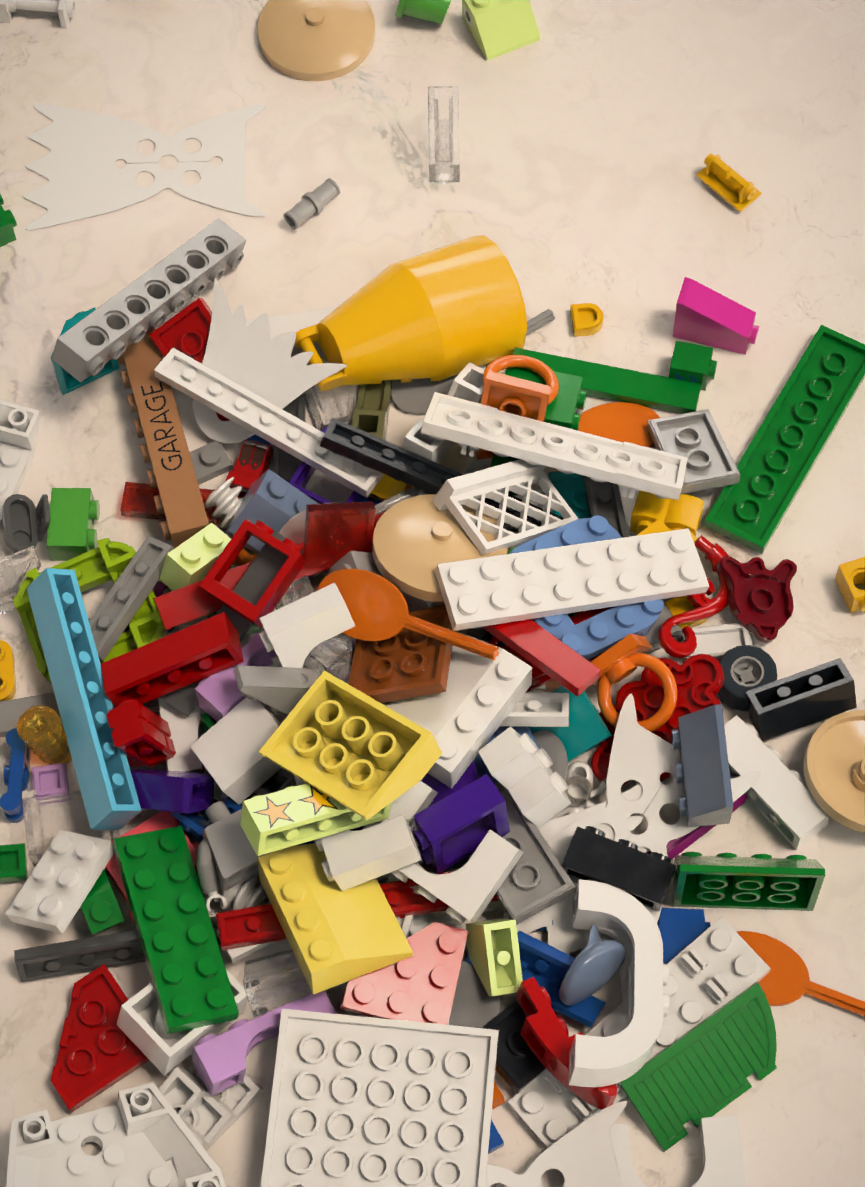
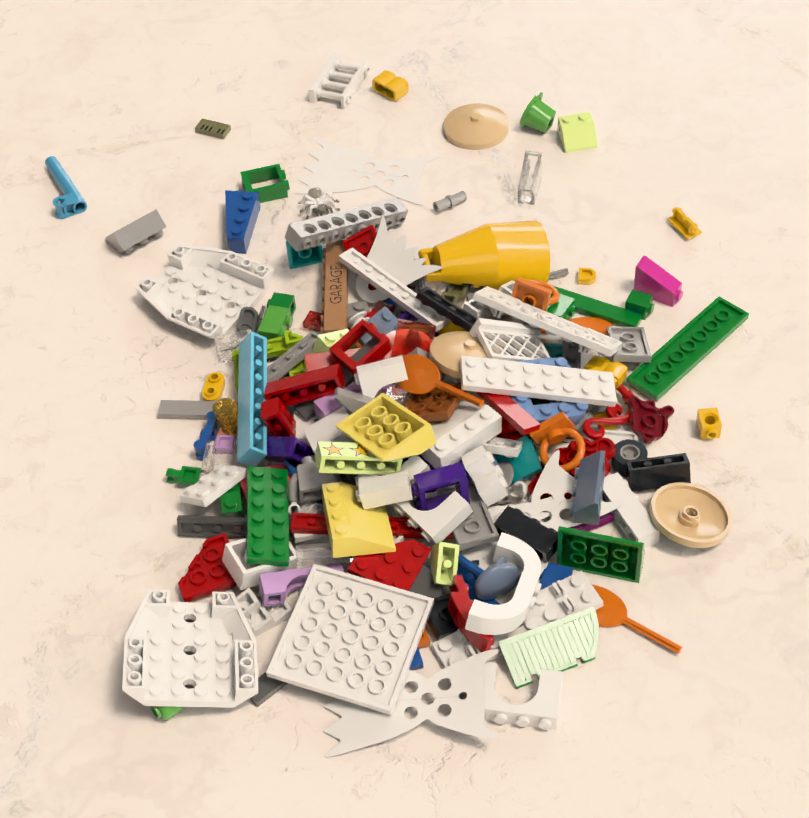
camera: 15 degrees right, 15 degrees down
(72, 474) = (283, 300): none -> green brick
(78, 249) = (318, 202): none -> animal

